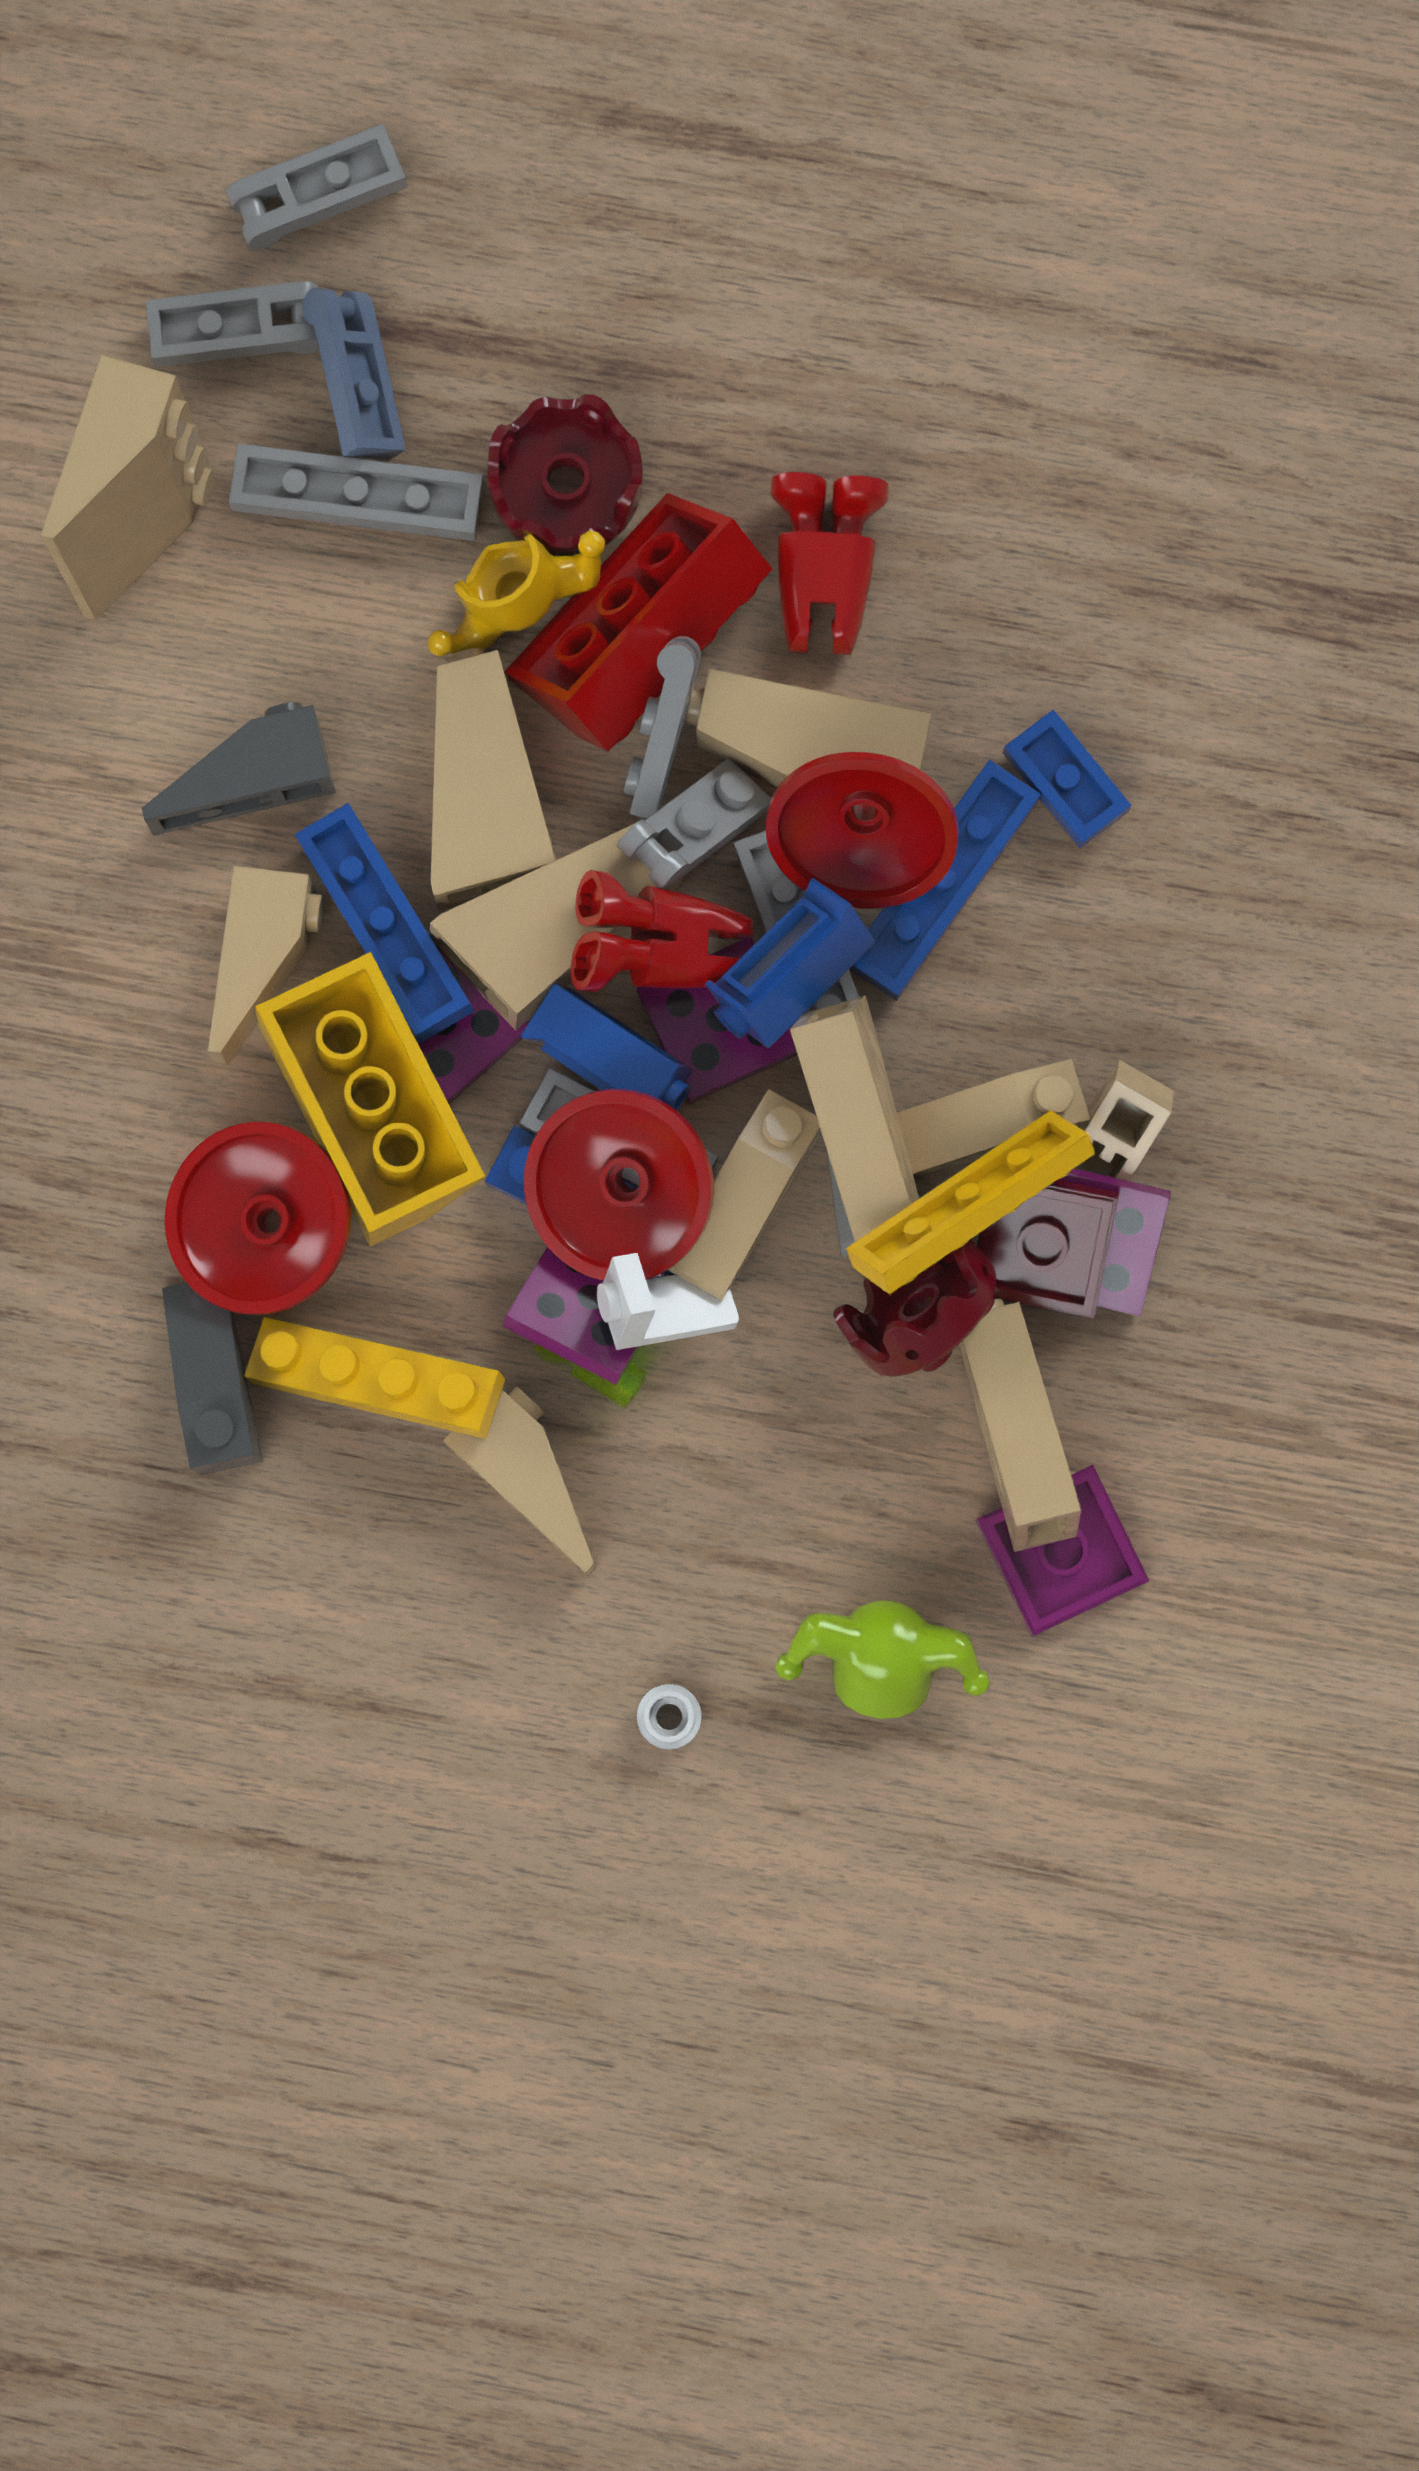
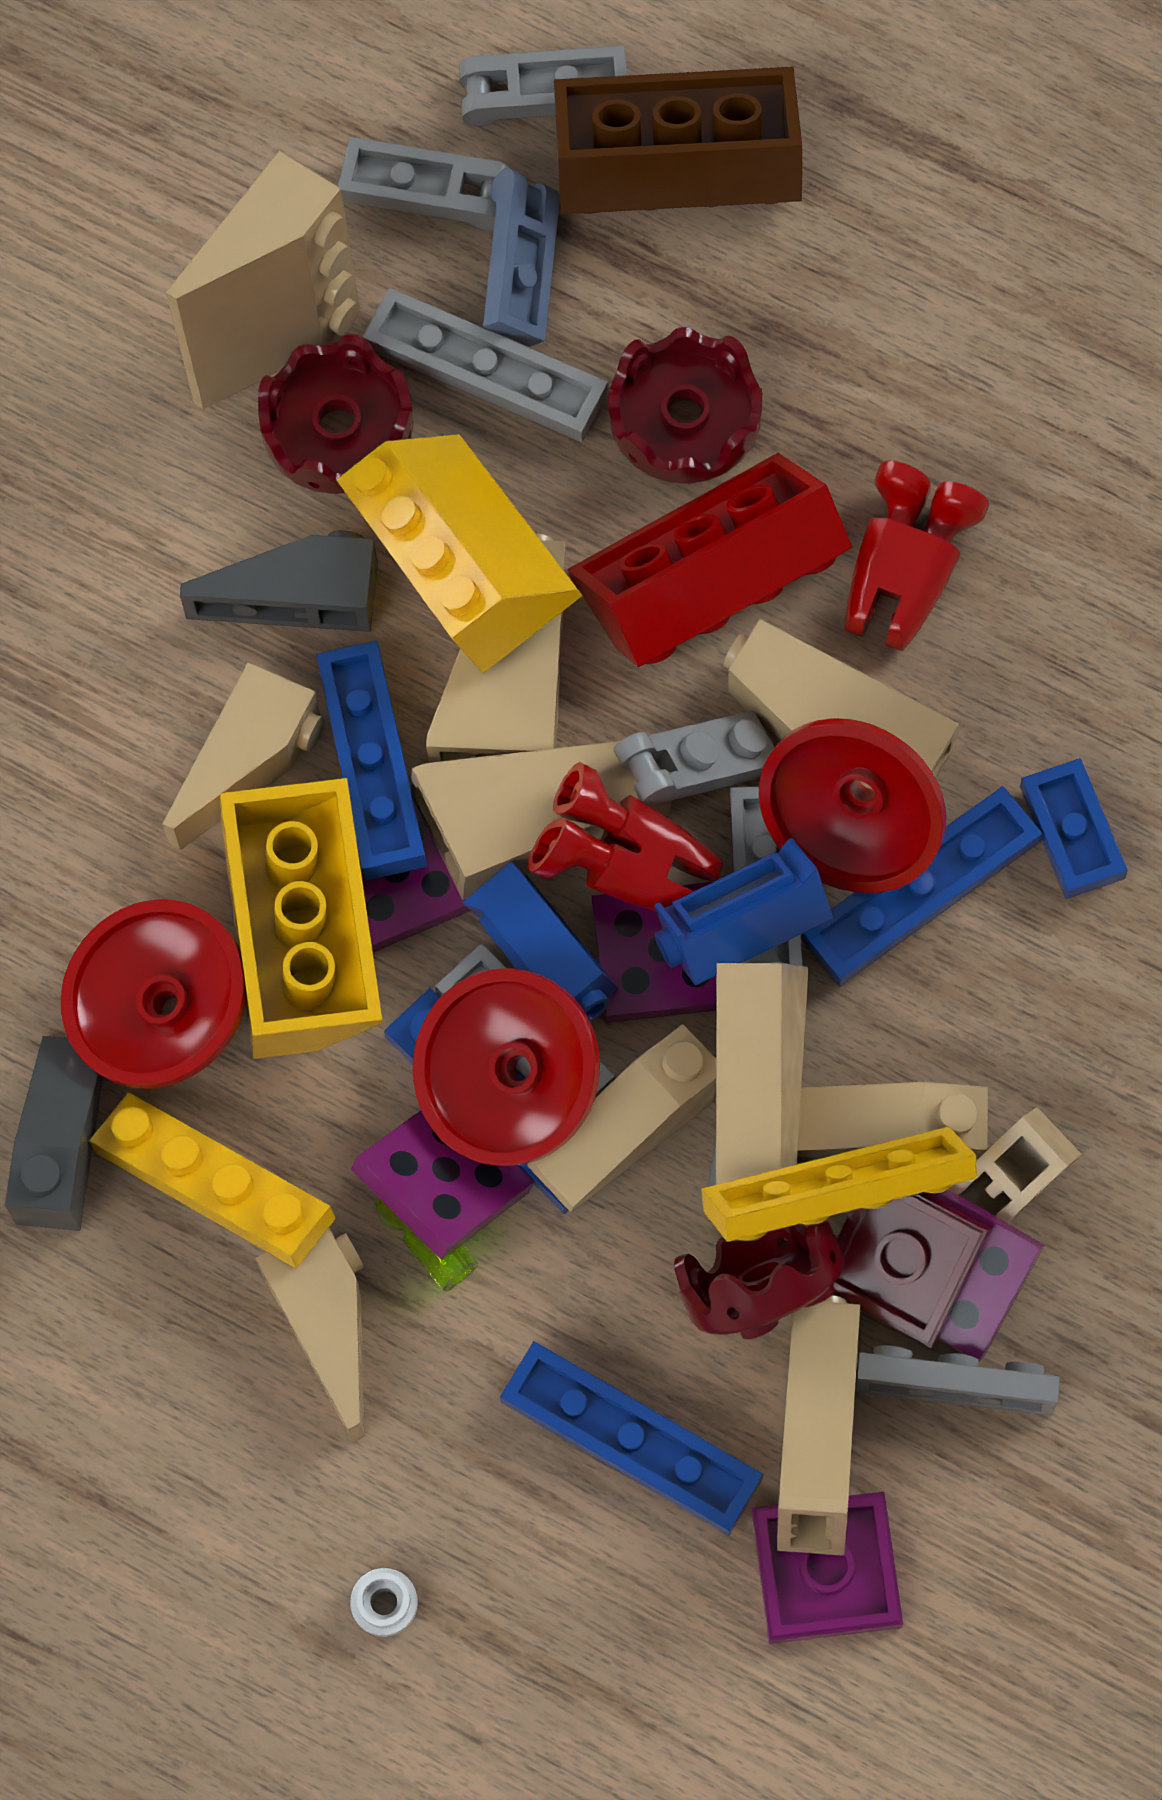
camera: 20 degrees right, 10 degrees down
(220, 550) = (324, 380): none -> dark red plate
(399, 684) = (460, 543): none -> yellow slope
(469, 206) = (678, 140): none -> reddish brown slope
(515, 588) = (606, 491): yellow piece -> none
(658, 1308) = (504, 1197): white bracket -> none
(663, 723) = (698, 656): light grey plate -> none
(845, 1491) = (631, 1438): none -> blue plate
(883, 1657) = (612, 1610): lime piece -> none
(1129, 1340) = (957, 1381): none -> light grey plate

